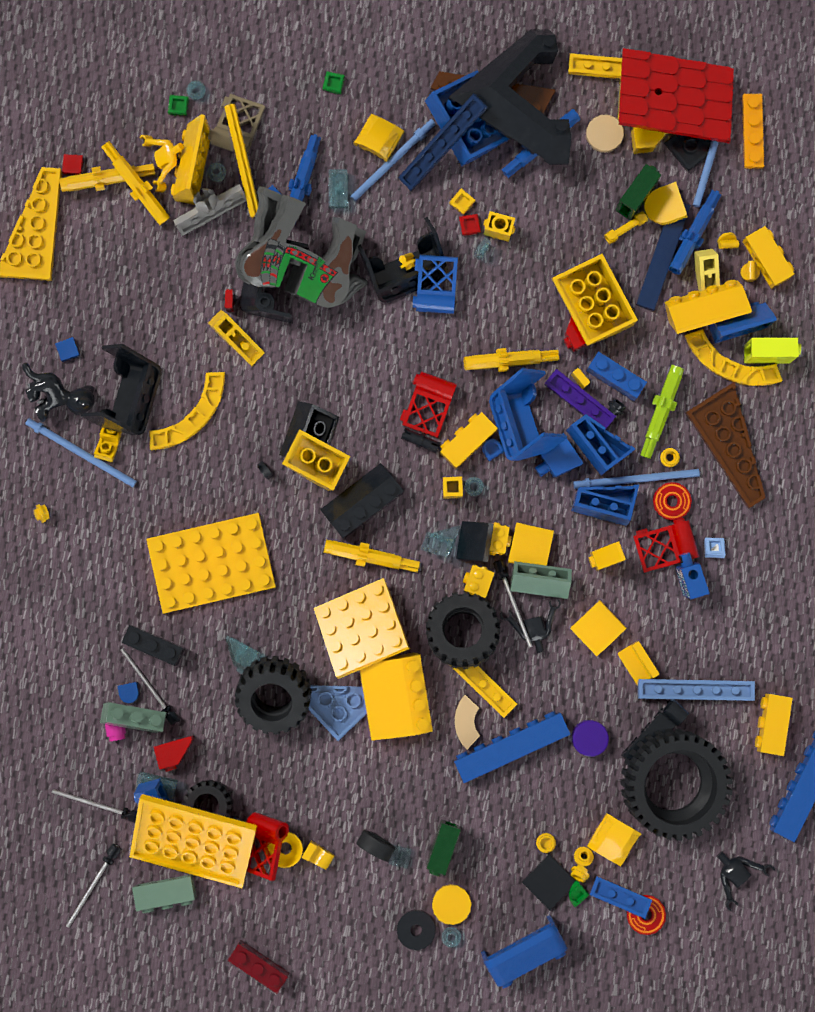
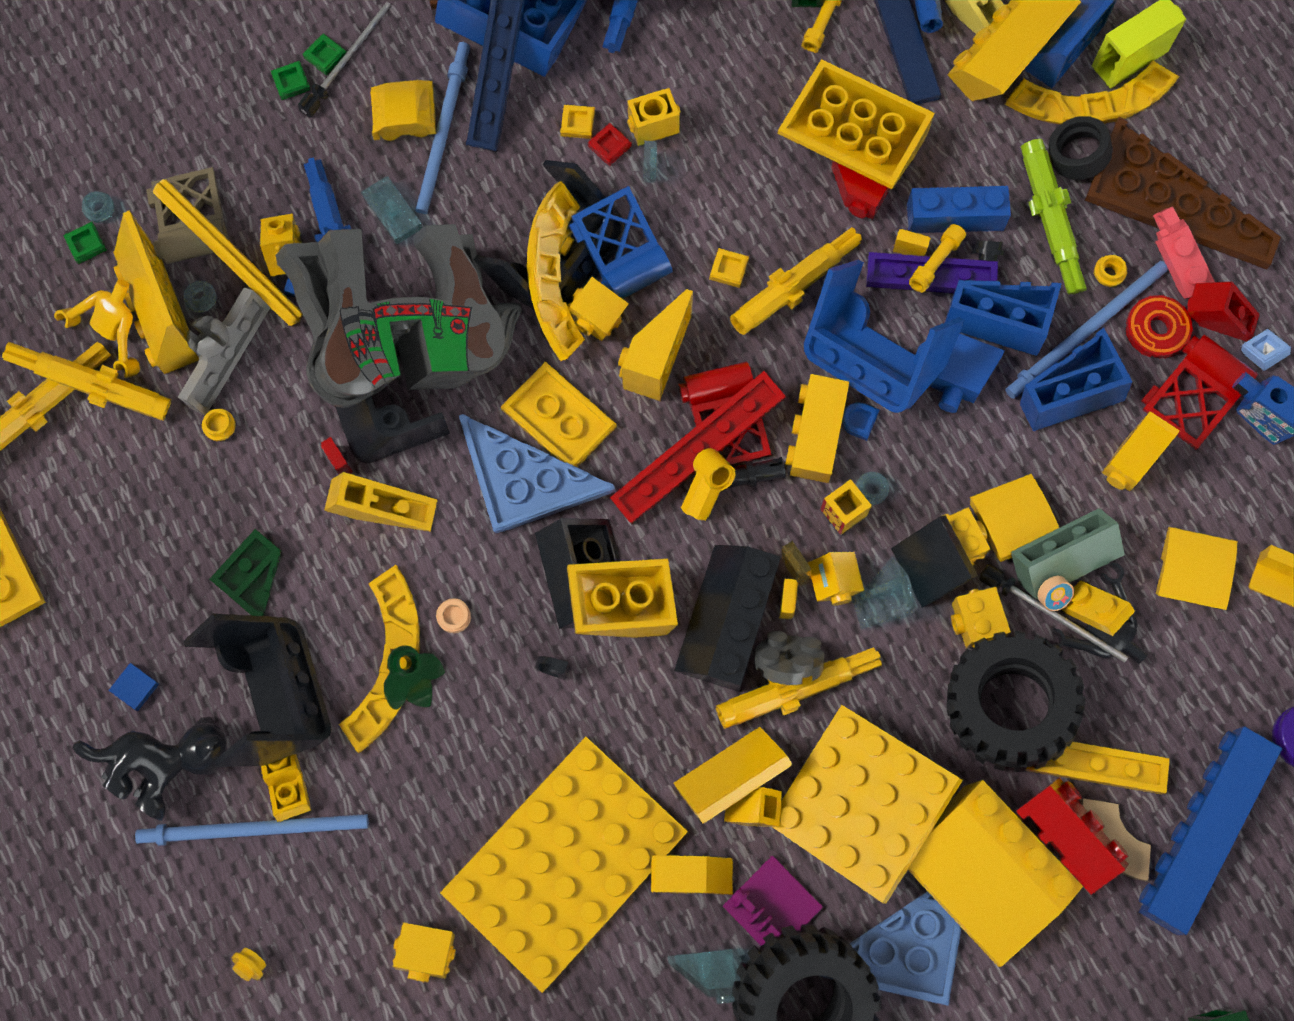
camera: 30 degrees left, 10 degrees down
(122, 560) = (423, 952): none -> yellow head
(153, 331) = (250, 573): none -> dark green wing
(184, 245) = (218, 424): none -> yellow plate
(196, 433) = (414, 680): none -> dark green plate
(235, 414) = (453, 615): none -> light nougat tile
(263, 607) = (692, 874): none -> yellow slope
(271, 172) = (274, 235): none -> yellow head
(291, 643) = (771, 902): none -> magenta hinge
(310, 371) = (524, 481): none -> medium blue tile
(311, 575) = (732, 774): none -> yellow tile
(311, 596) = (756, 809): none -> yellow brick
(336, 102) = (310, 102): none -> piece
(349, 350) = (558, 416): none -> yellow tile
(359, 79) = (324, 54): none -> green tile
(383, 540) = (789, 658): none -> dark grey plate
(388, 274) = (544, 270): none -> yellow tile
(396, 432) = (711, 477): none -> yellow piece
(397, 510) = (788, 598): none -> yellow tile
(402, 309) = (596, 309): none -> yellow head
(403, 411) = (714, 432): none -> red plate
(408, 499) = (796, 564): none -> clear yellow tile
(416, 349) = (655, 348): none -> yellow slope
(424, 517) = (836, 577): none -> yellow brick
(447, 706) = (1075, 835): none -> red wedge
(483, 329) = (729, 268): none -> yellow tile
(520, 594) = (1055, 593): none -> tile
(534, 614) = (1098, 608): none -> yellow plate
(601, 389) = (924, 275): none -> yellow bar
(701, 372) = (1076, 128): none -> black tyre
(708, 515) = (1223, 310): none -> red slope
(709, 474) = (1180, 252): none -> coral hinge

